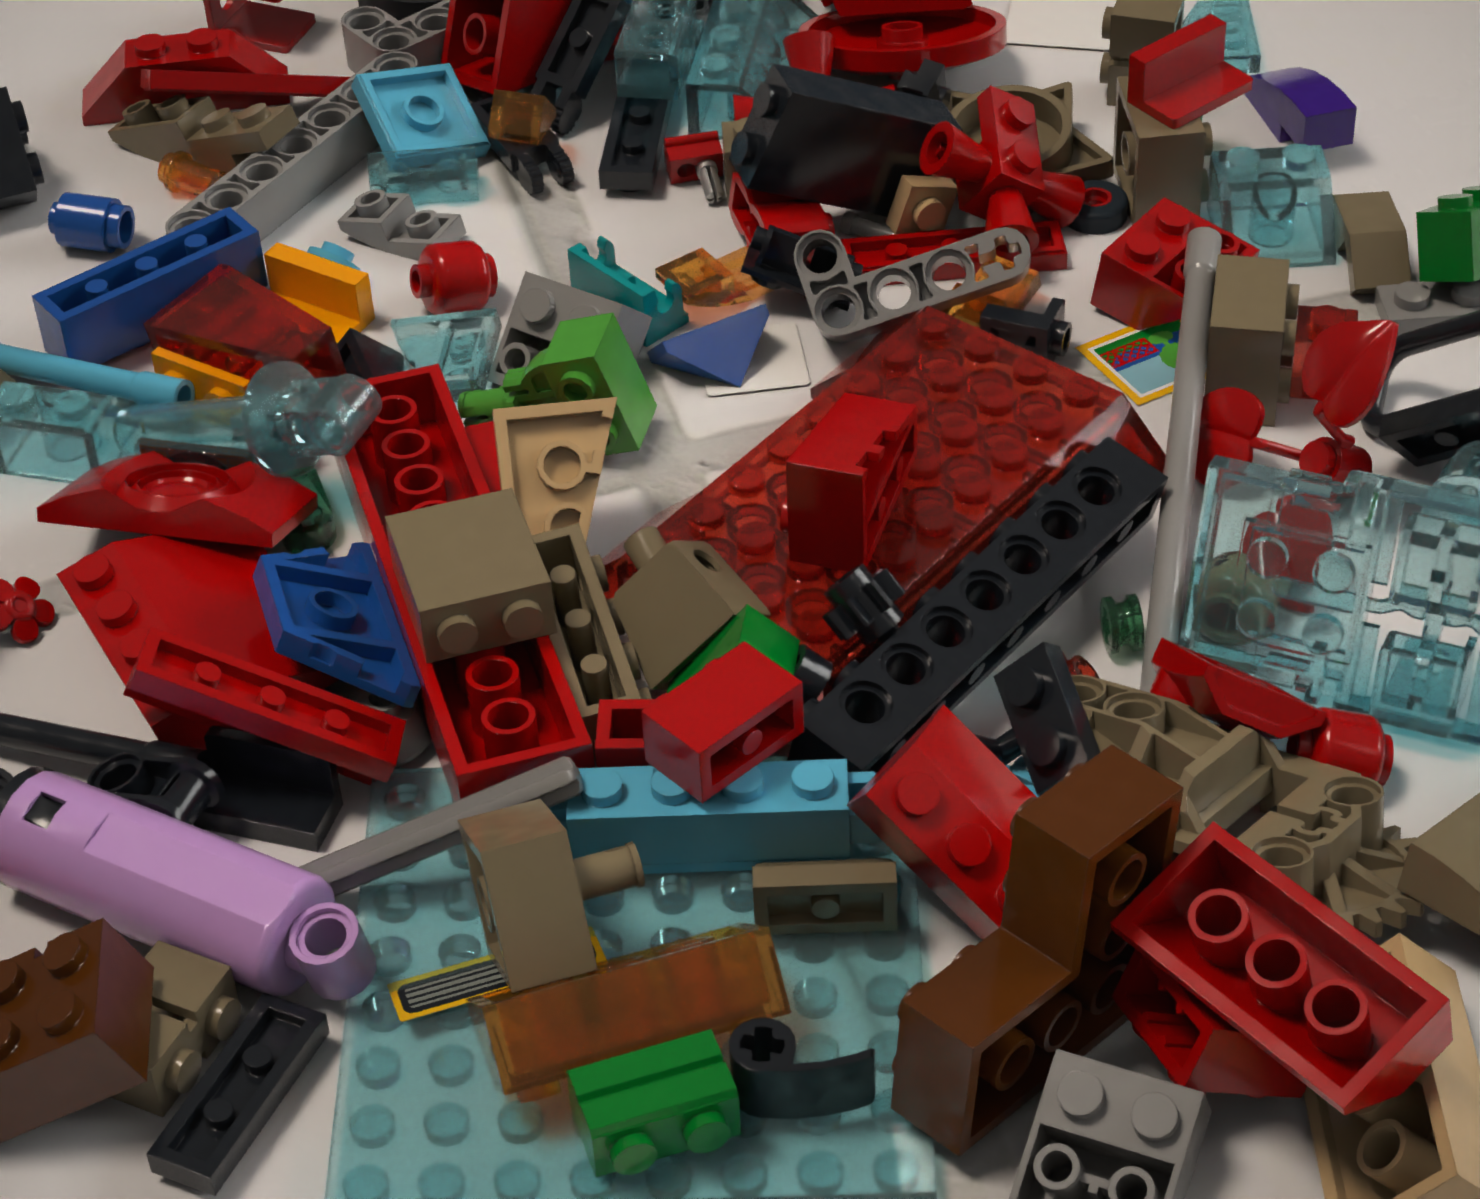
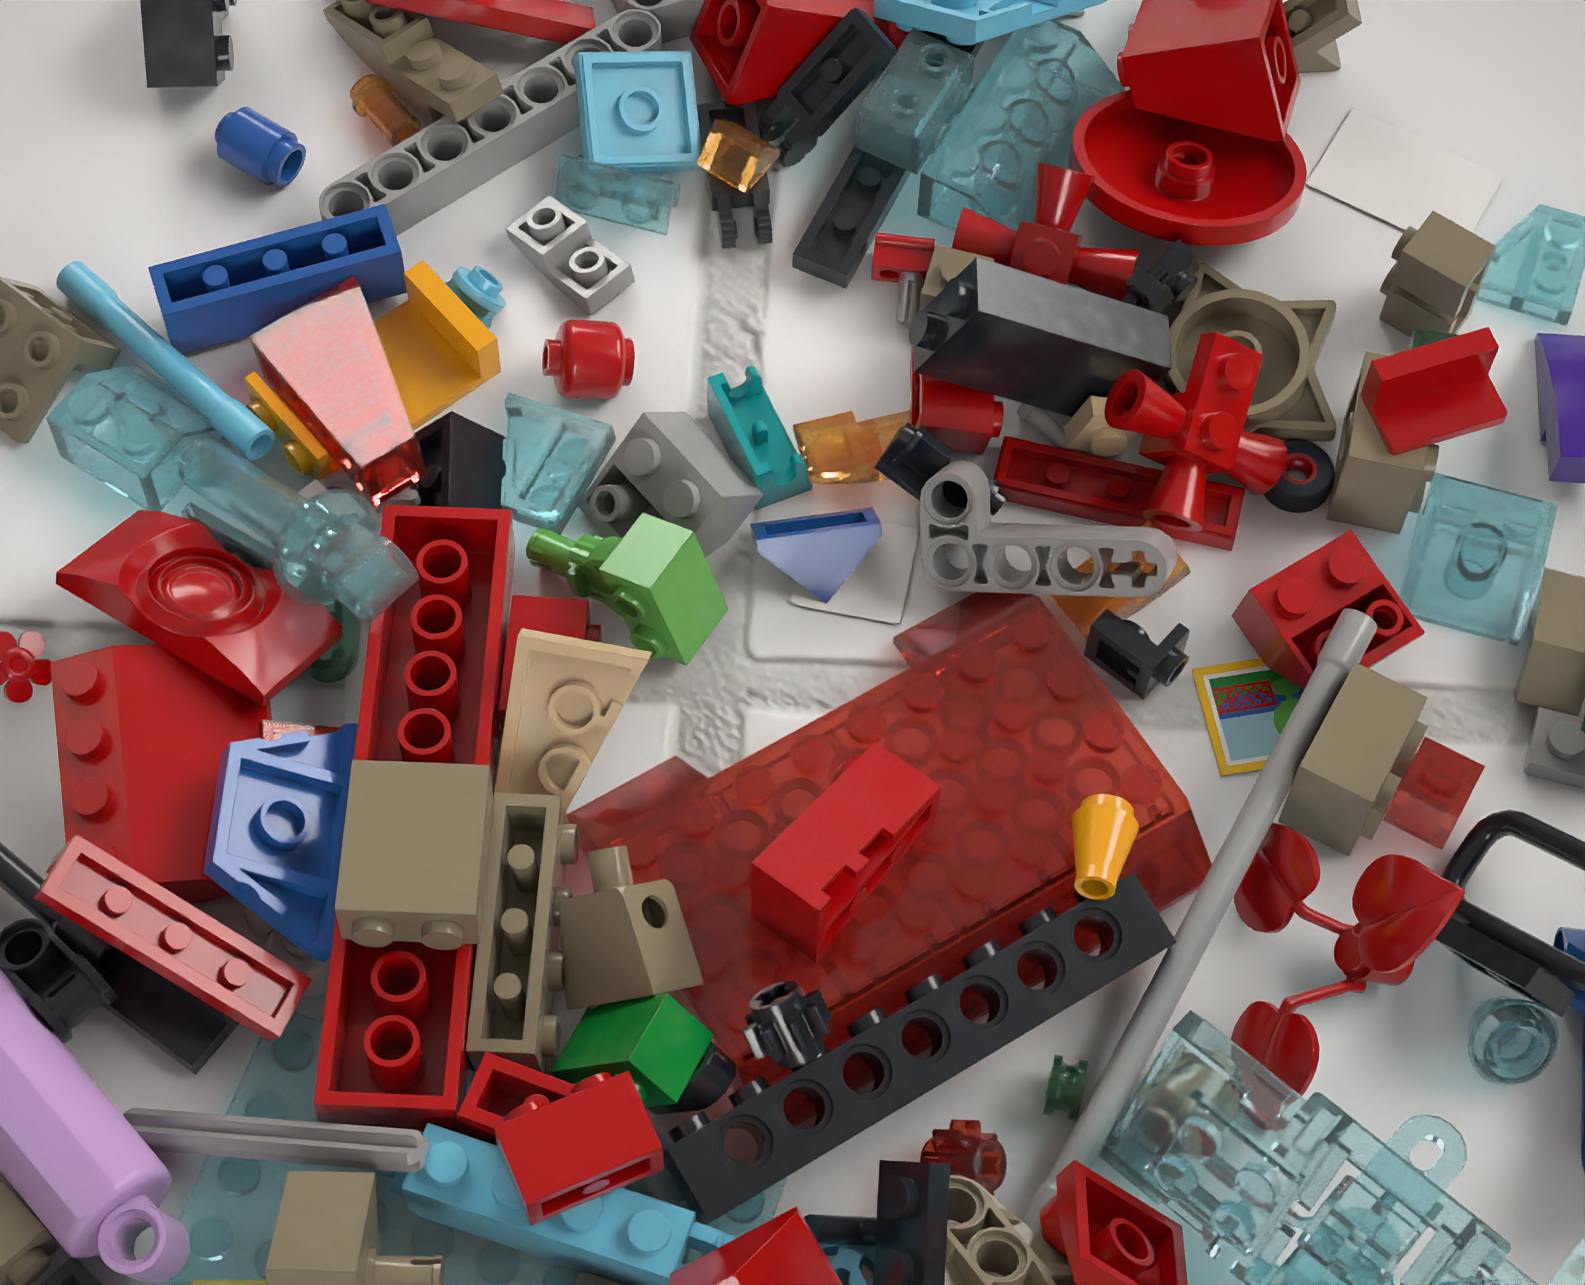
camera: 15 degrees right, 20 degrees up
(1071, 417) = (1101, 840): none -> light orange cone

